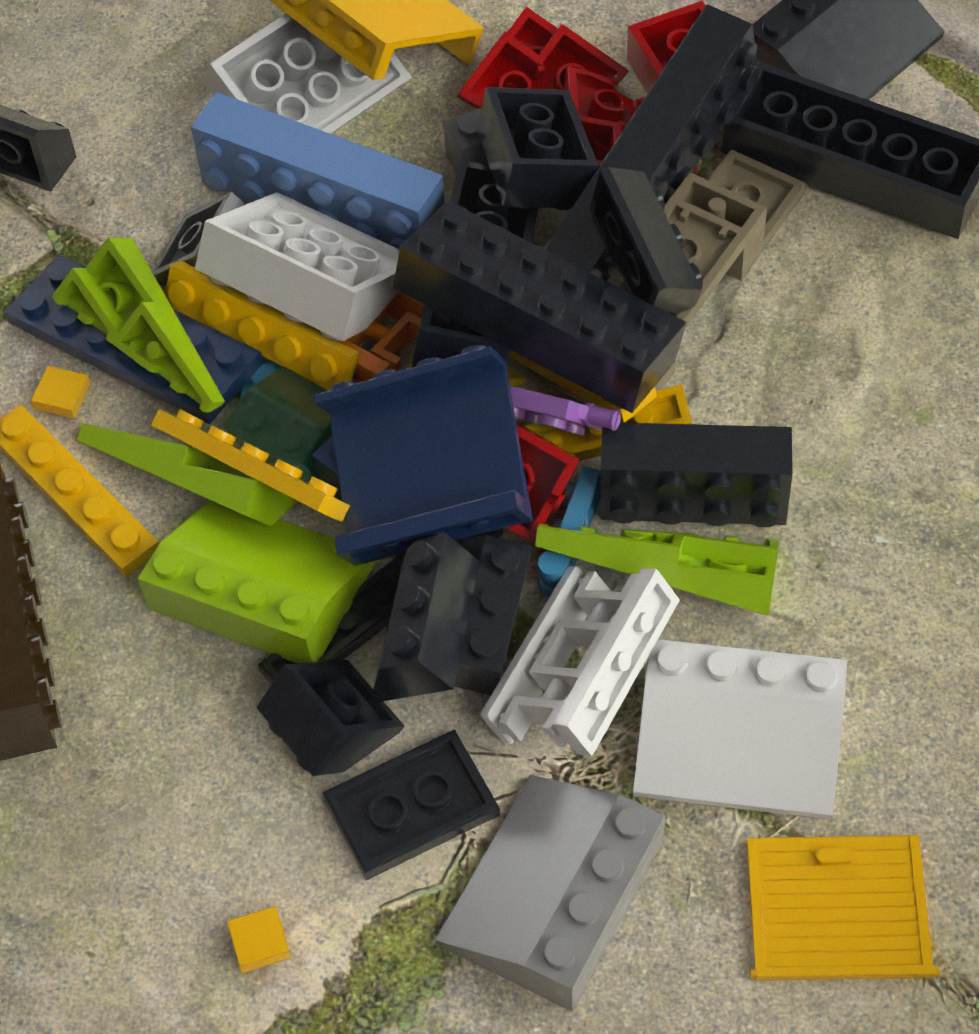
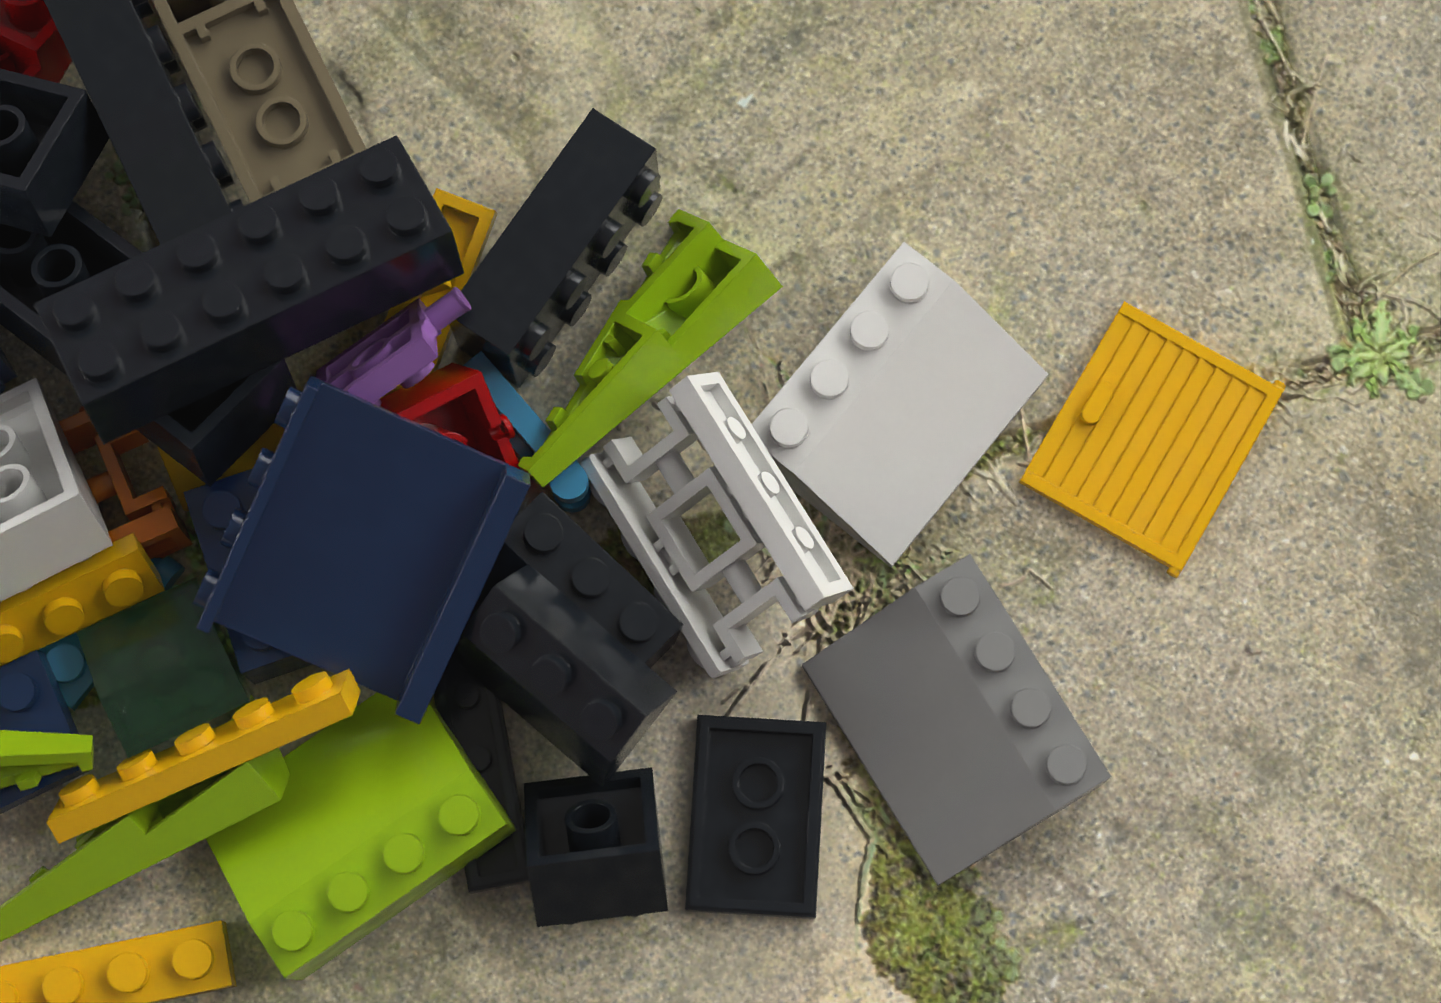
camera: 60 degrees left, 20 degrees up
(644, 241) = (250, 111): black slope -> none

